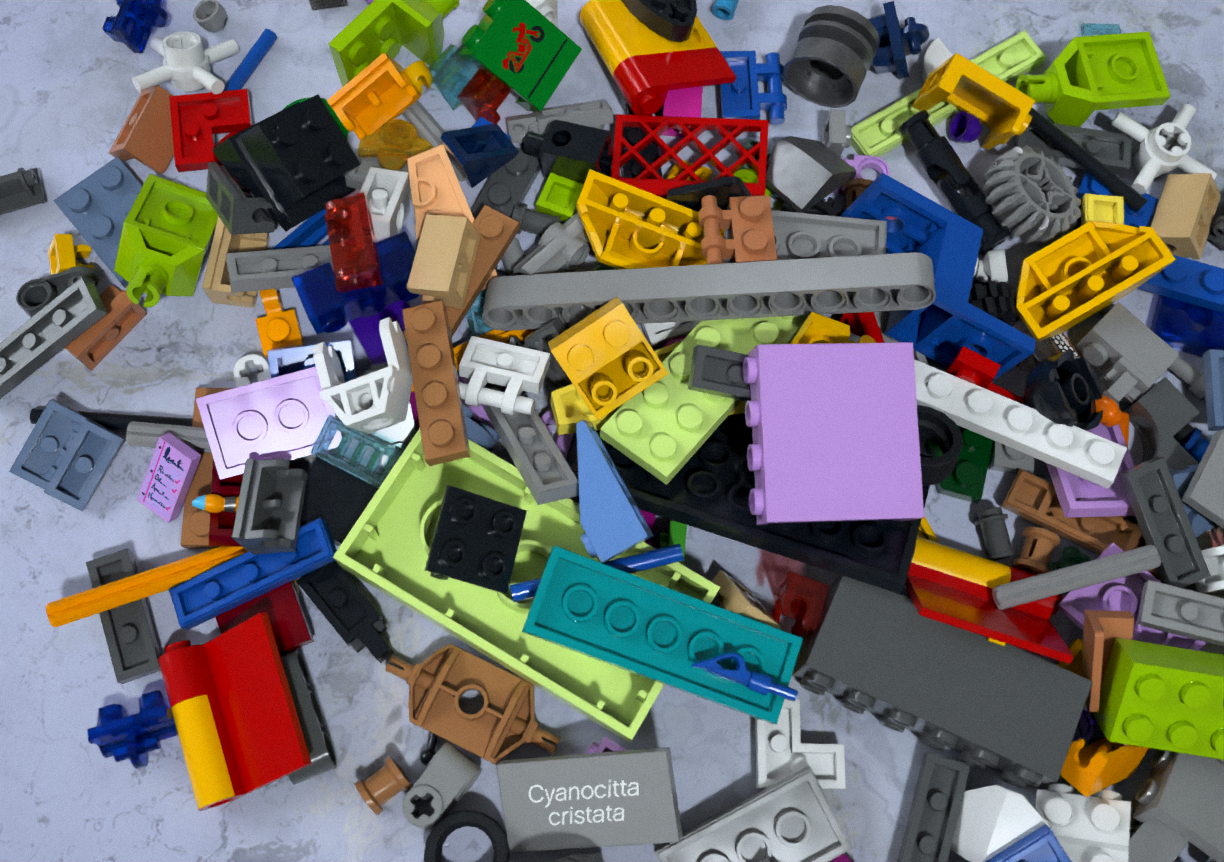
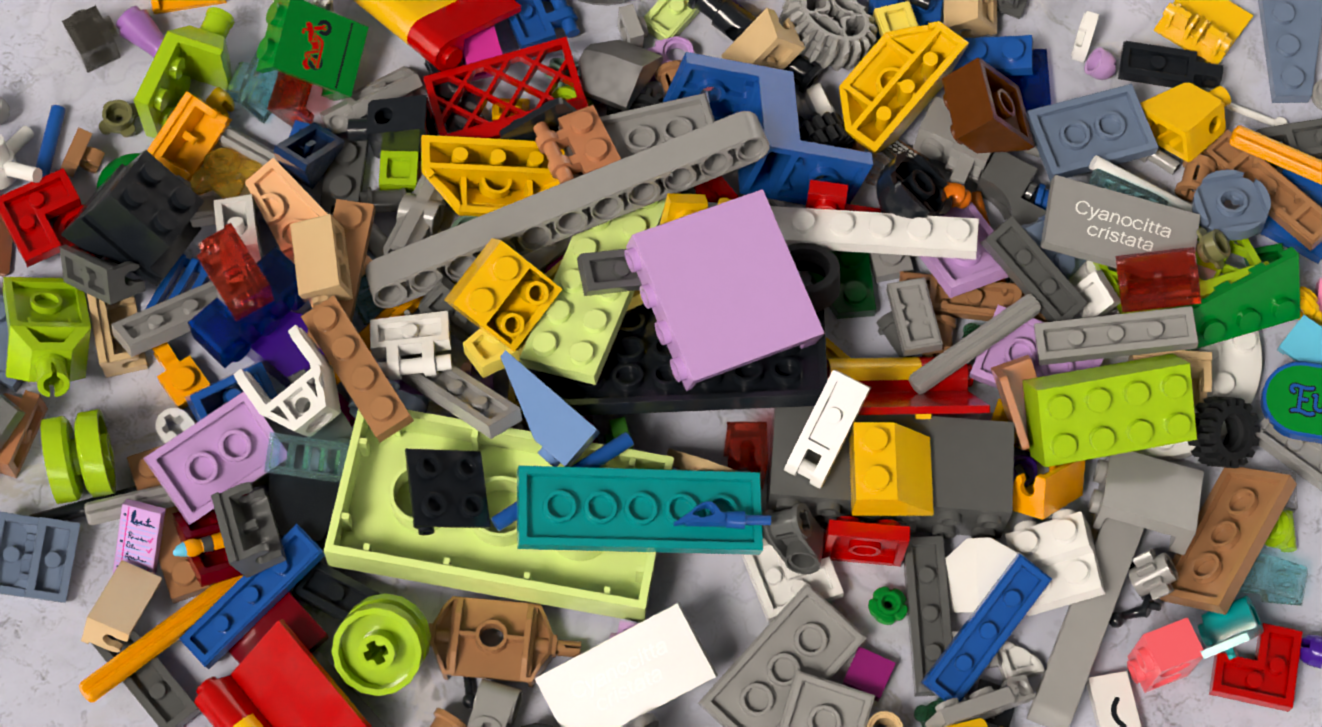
camera: 20 degrees left, 5 degrees down
(123, 536) = (120, 606): none -> tan hinge
(143, 372) = (78, 456): none -> lime wheel
(271, 81) = (79, 154): none -> medium nougat tile
(313, 55) = (116, 109): none -> olive plate
(355, 673) = (360, 641): none -> lime wheel
(816, 718) = (796, 538): none -> dark grey piece
(873, 738) = (866, 542): none -> red plate
(875, 817) = (880, 612): none -> green plate
(893, 621) = (828, 427): none -> white plate
(941, 690) = (890, 470): none -> yellow slope
(966, 191) = (766, 42): none -> tan hinge
(1020, 523) = (914, 317): none -> light grey plate
(1168, 334) = (986, 109): none -> reddish brown slope

